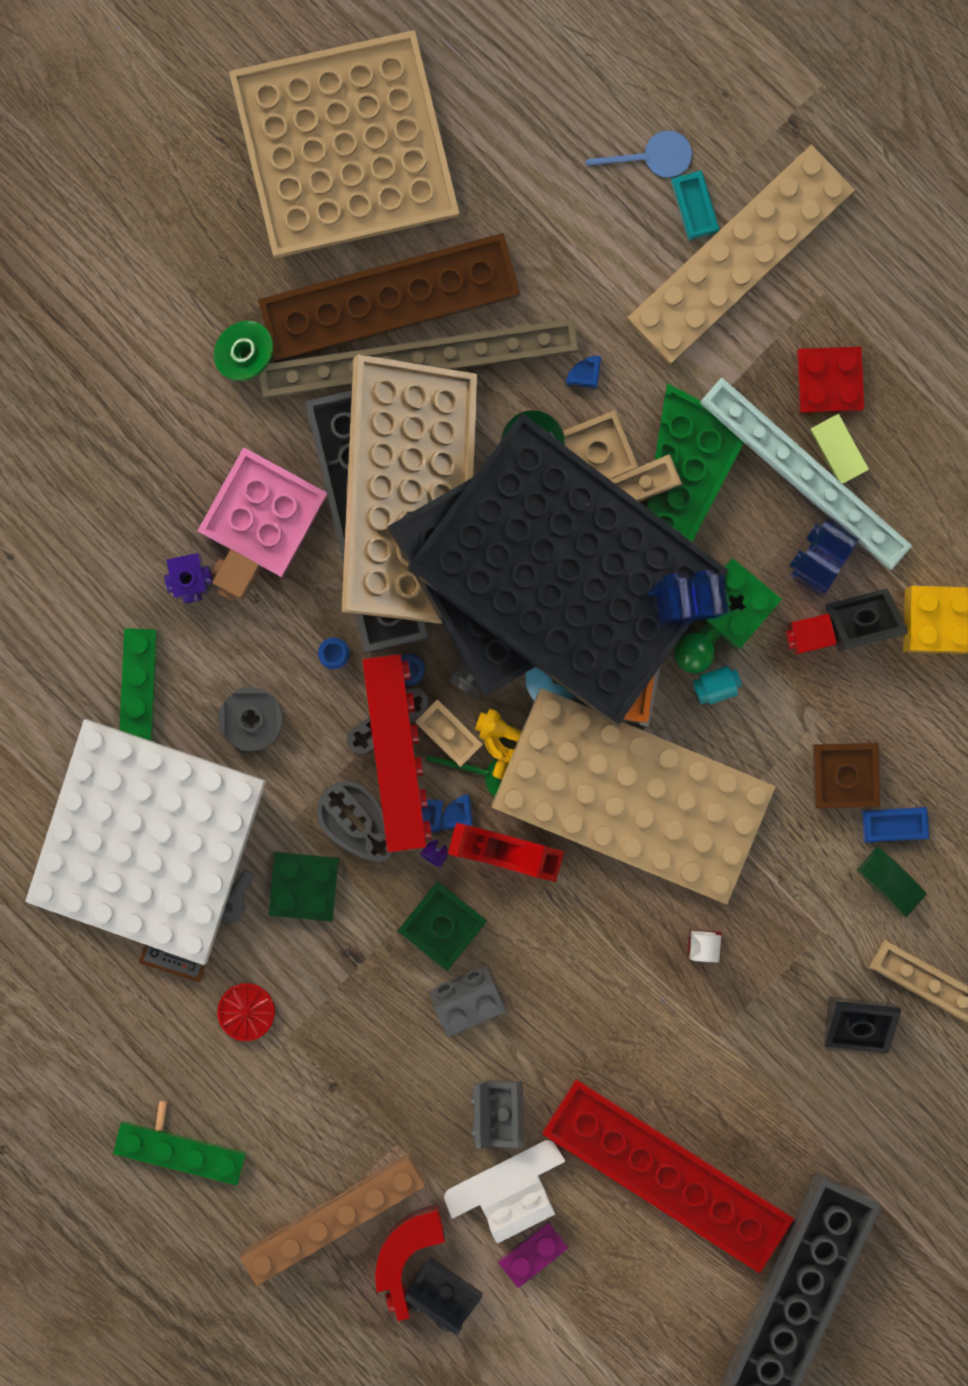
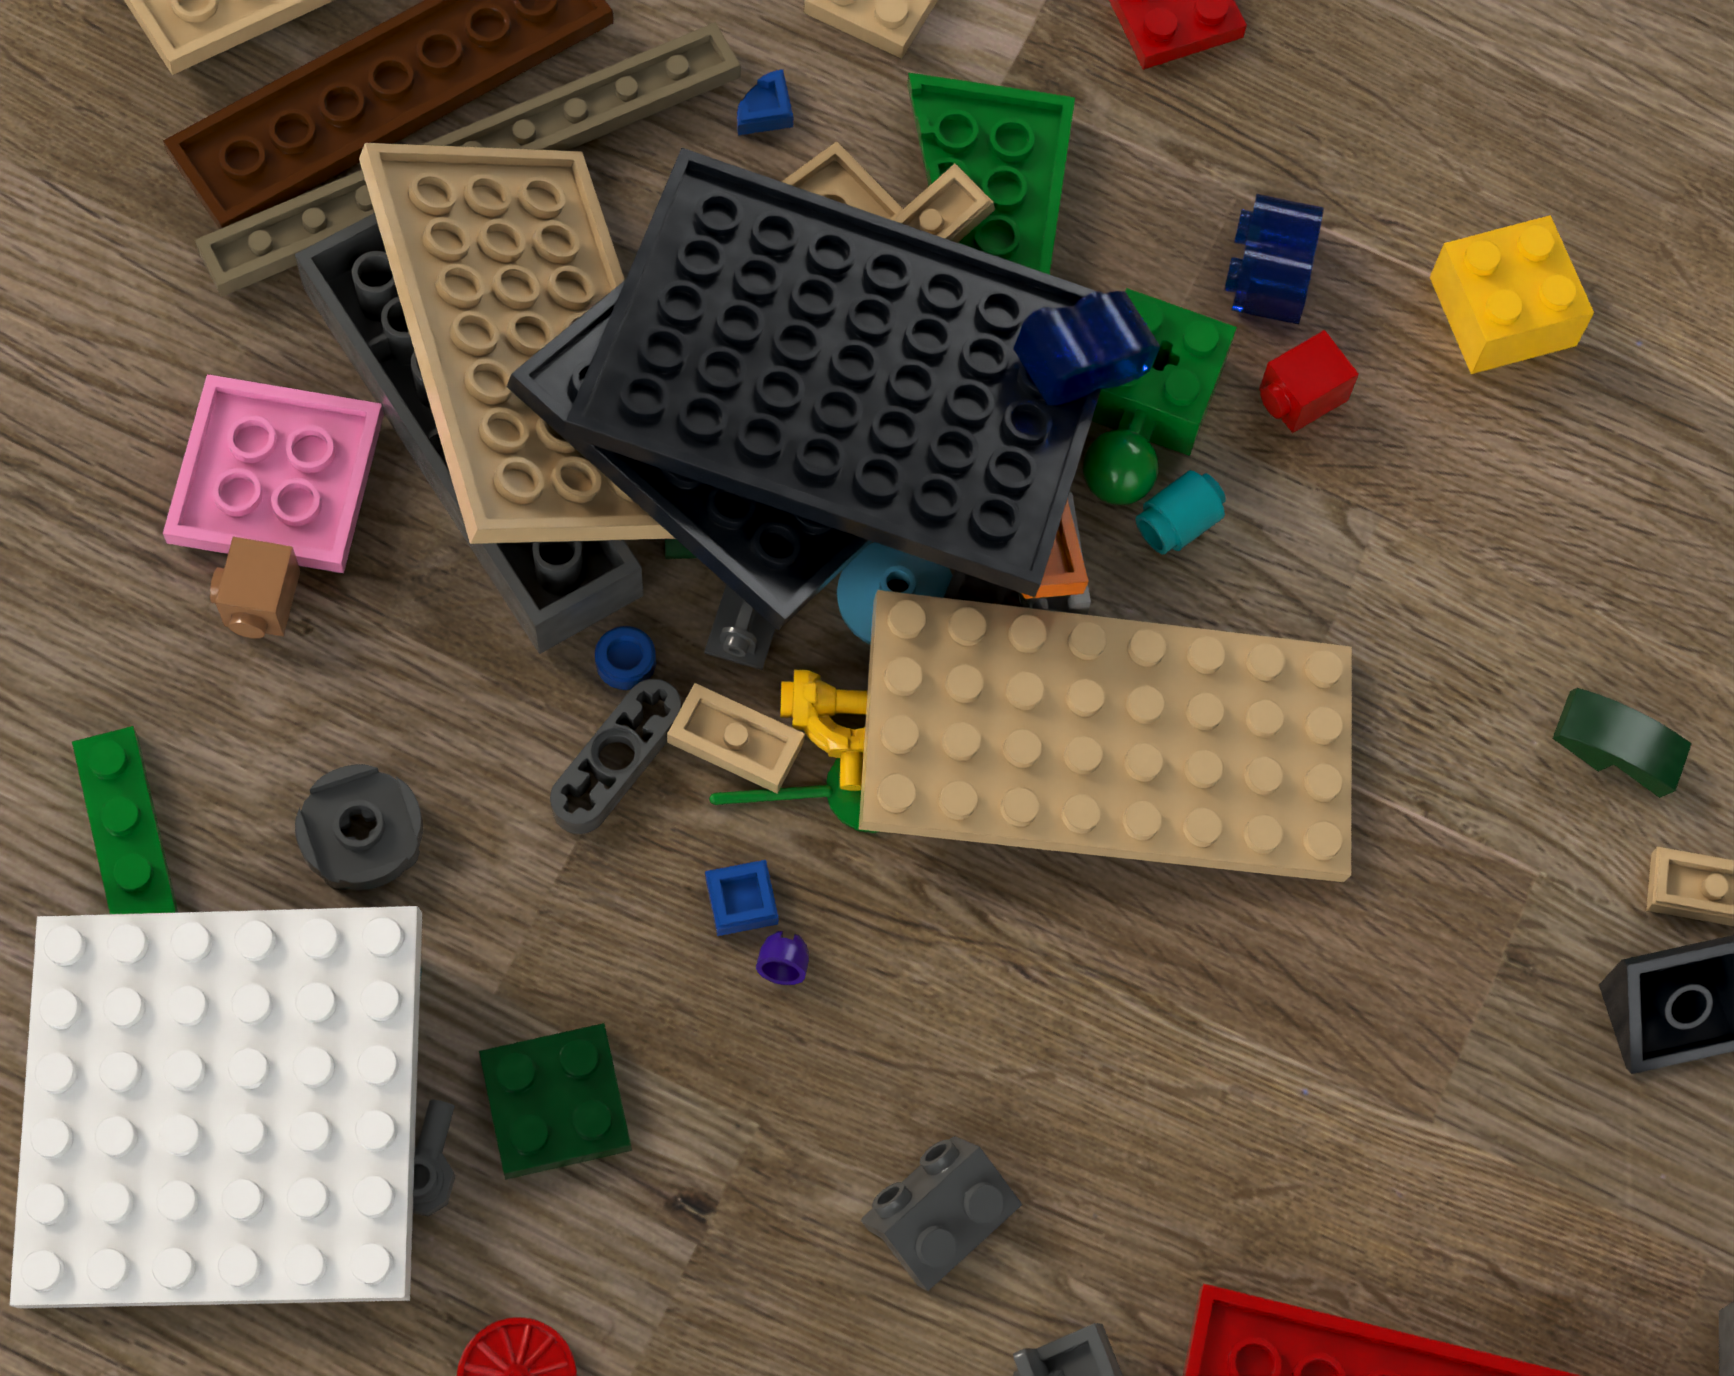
camera: 25 degrees left, 20 degrees down
(172, 963) = (341, 1327): tile -> none
(180, 569) = (168, 613): dark purple brick -> none
(236, 343) = (161, 225): green dish -> none
(334, 653) = (478, 669): blue plate -> none
(339, 829) = (626, 915): dark grey piece -> none
(394, 753) = (651, 793): red brick -> none
(442, 925) = (843, 1083): dark green plate -> none
(457, 811) = (802, 877): blue tile -> none
(506, 851) = (915, 908): red arch -> none
(704, 945) = (1342, 953): white leg -> none
(805, 473) = (1190, 139): light aqua tile -> none
(838, 449) = (1230, 98): yellowish green tile -> none
(846, 775) = (1465, 591): reddish brown plate -> none
(865, 620) = (1397, 337): pearl dark grey slope -> none
(895, 824) = (1583, 649): blue tile -> none

